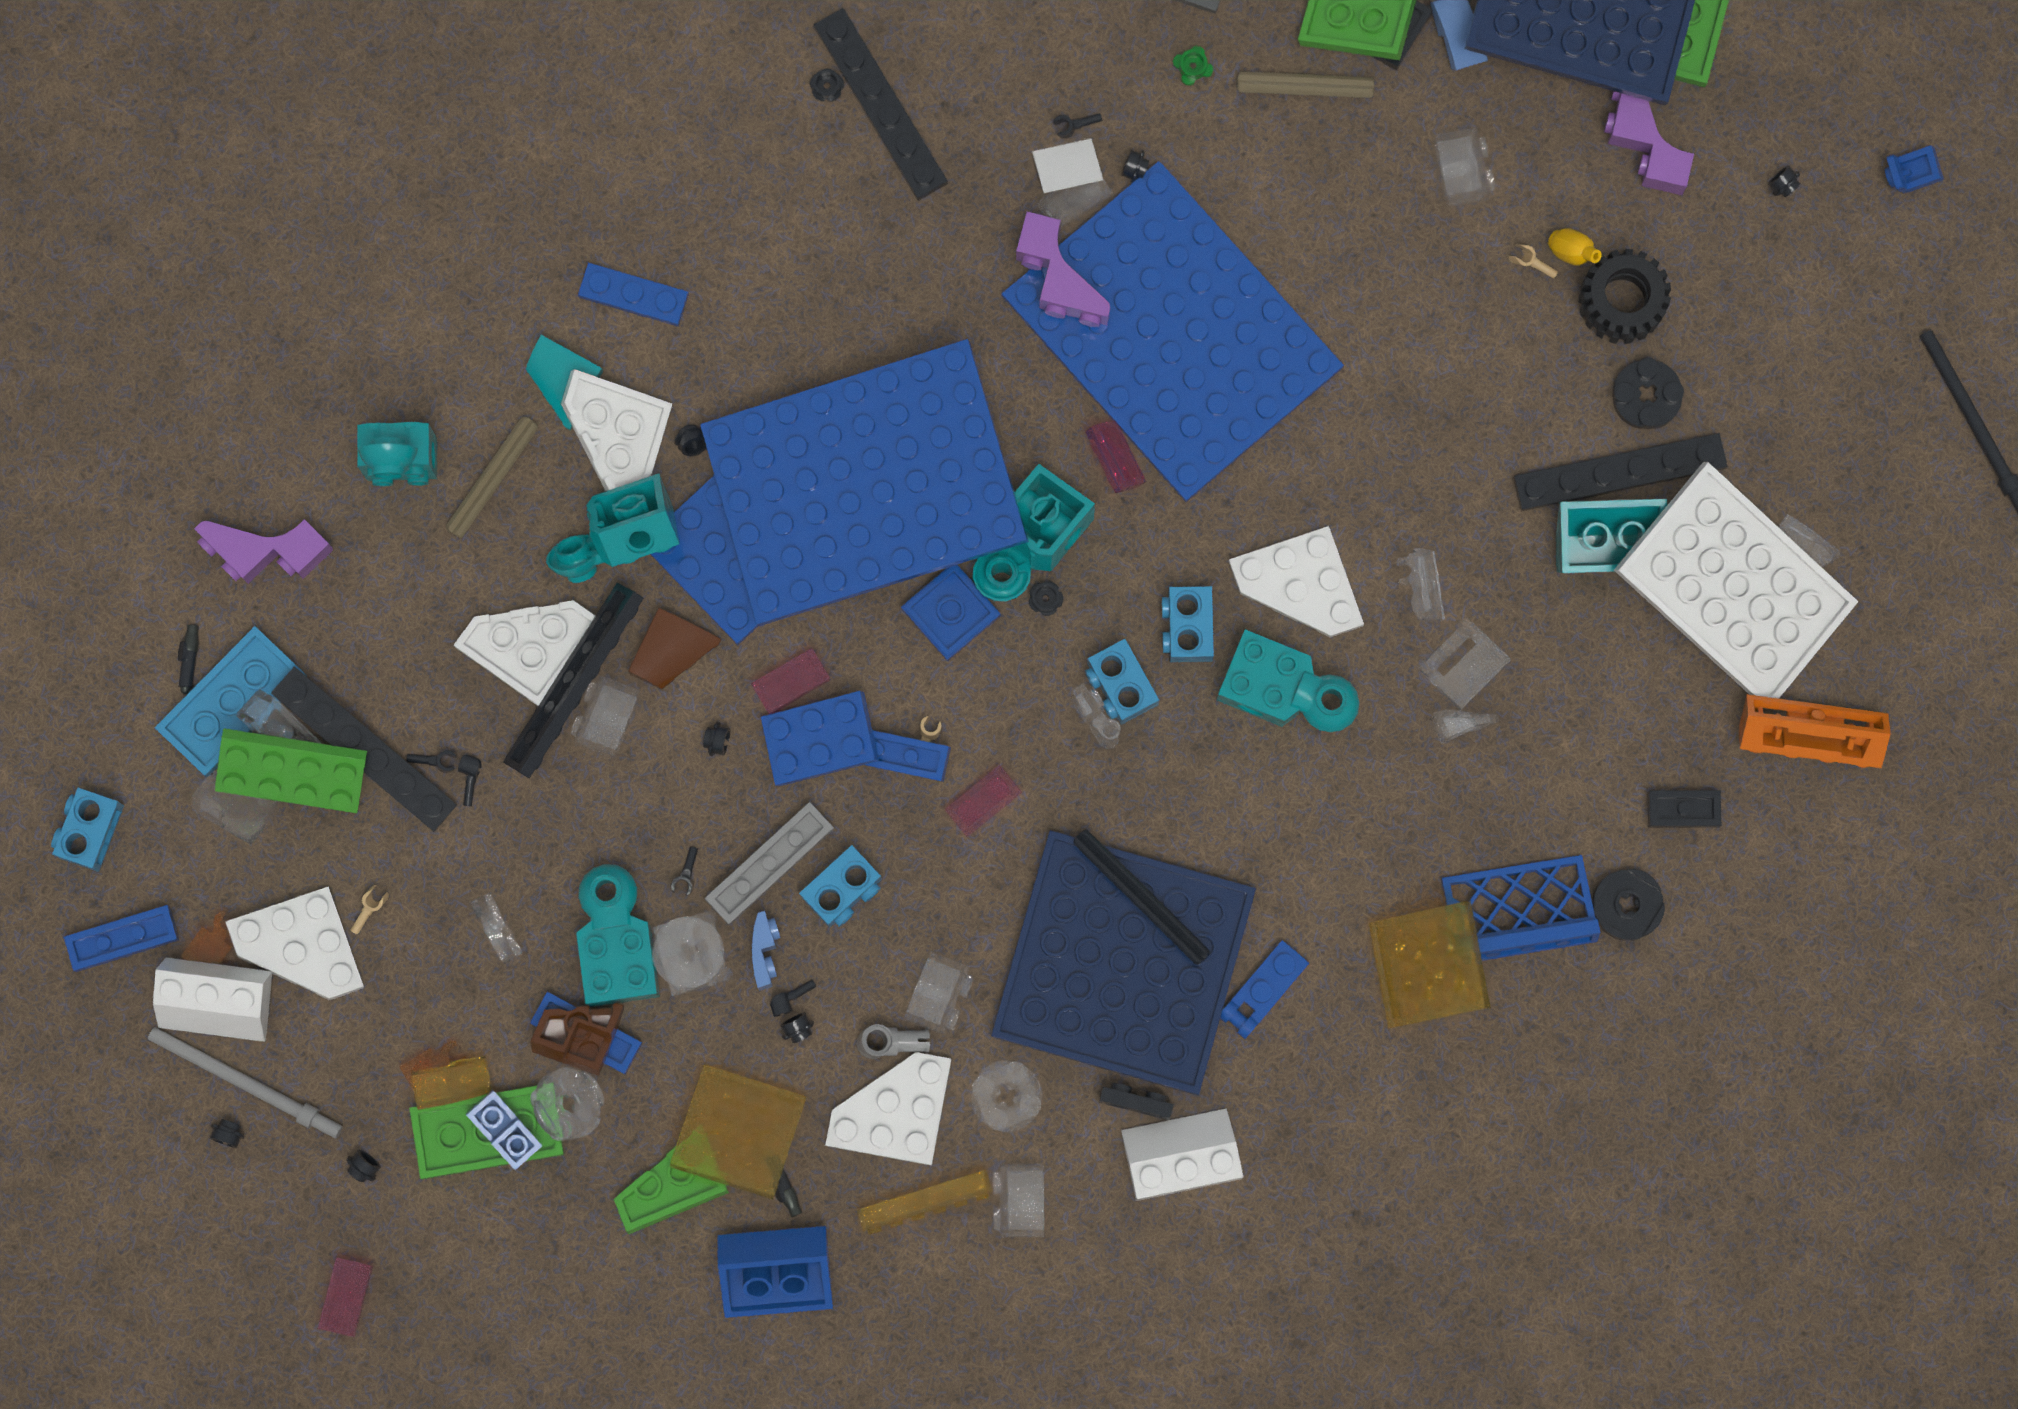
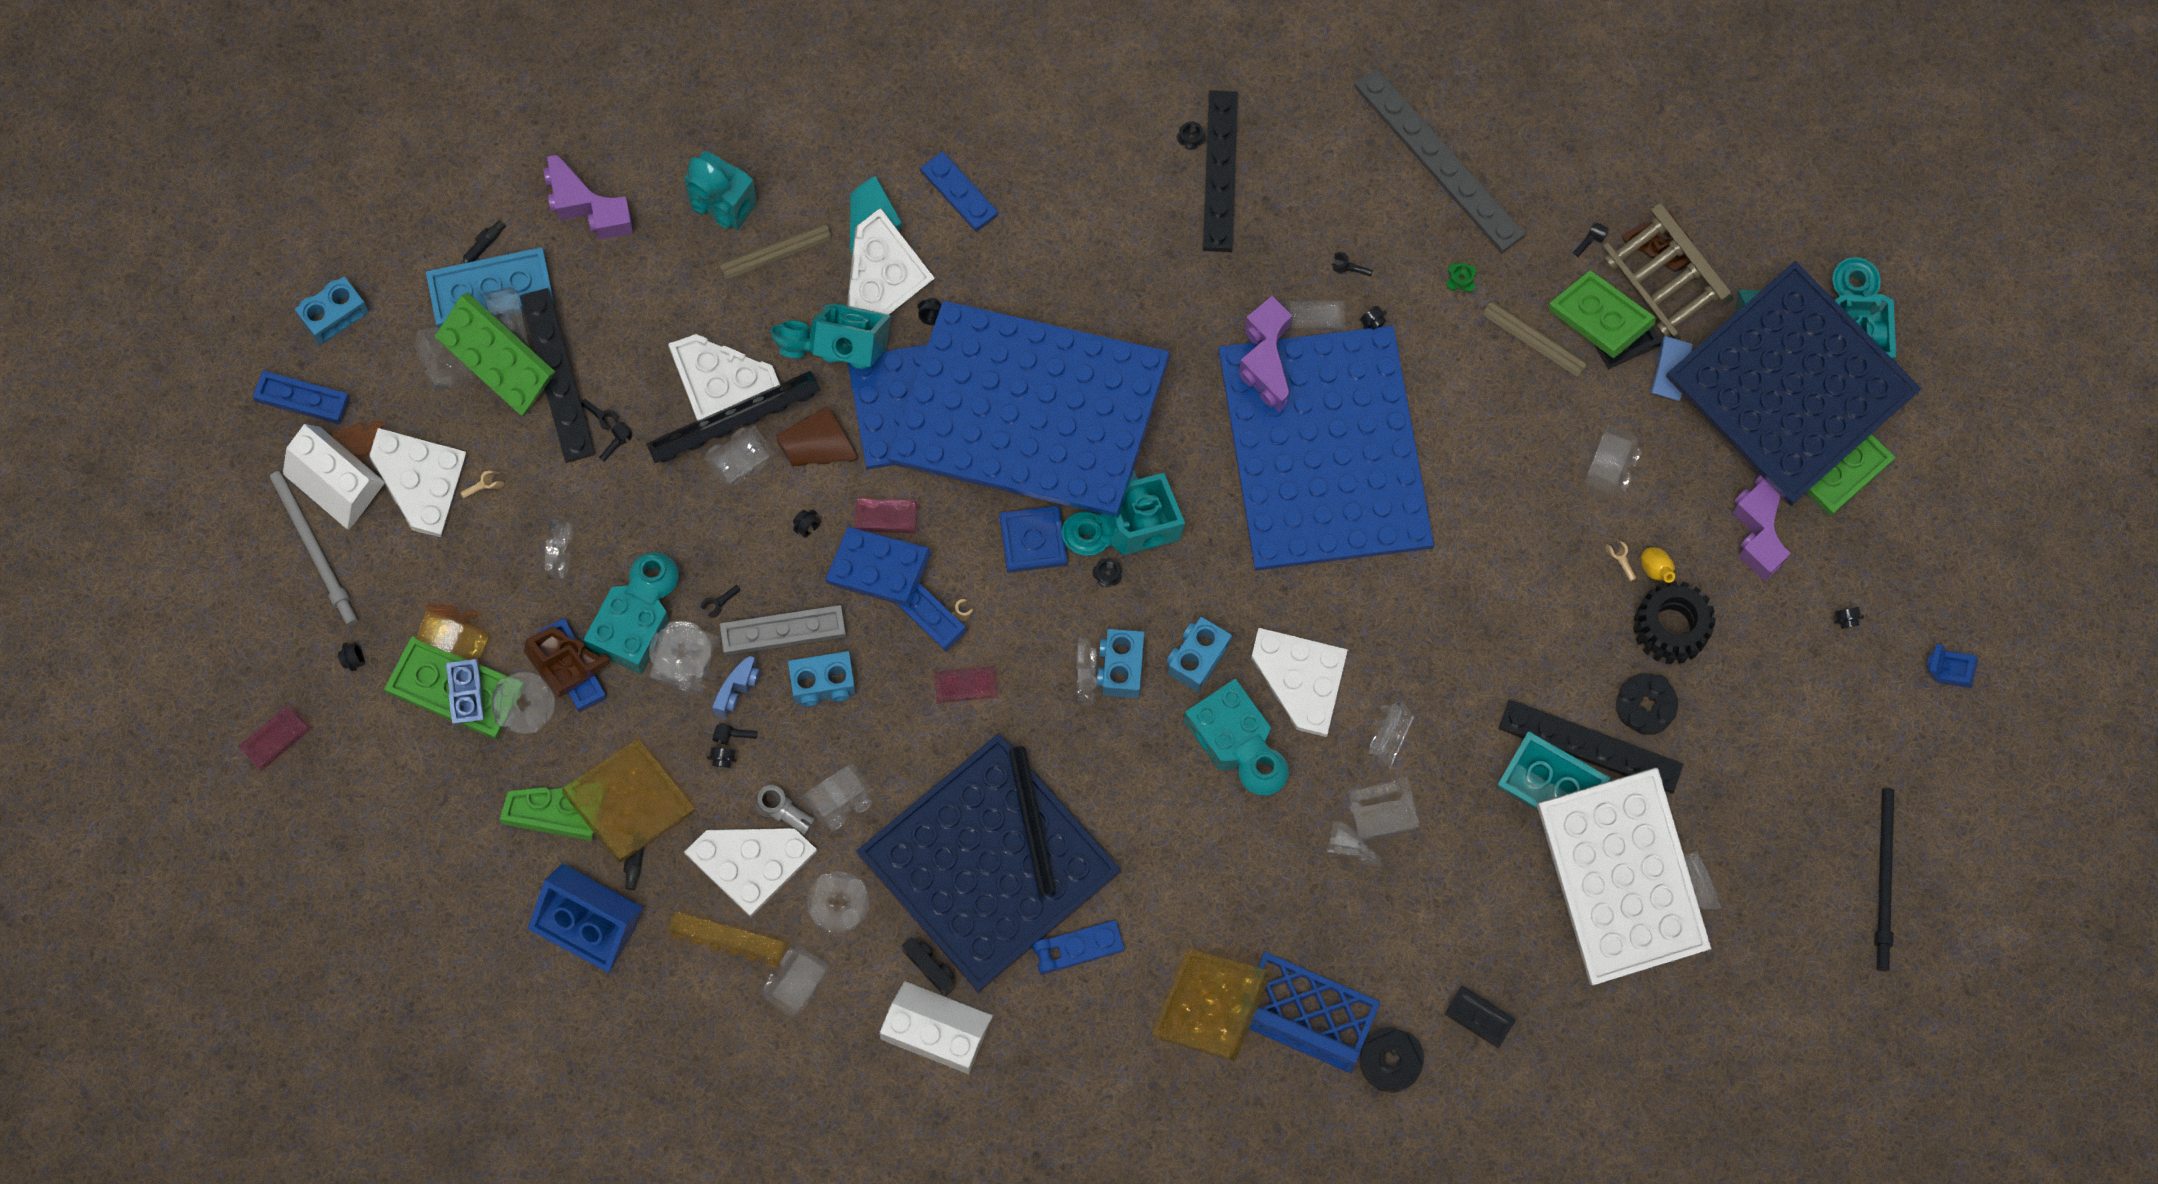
camera: 30 degrees right, 10 degrees down
(226, 1132) = (276, 573): black plate -> none
(1067, 165) = (1325, 289): white sticker -> none
(1115, 456) = (1224, 505): clear pink plate -> none
(1814, 731) = (1615, 1021): orange brick -> none

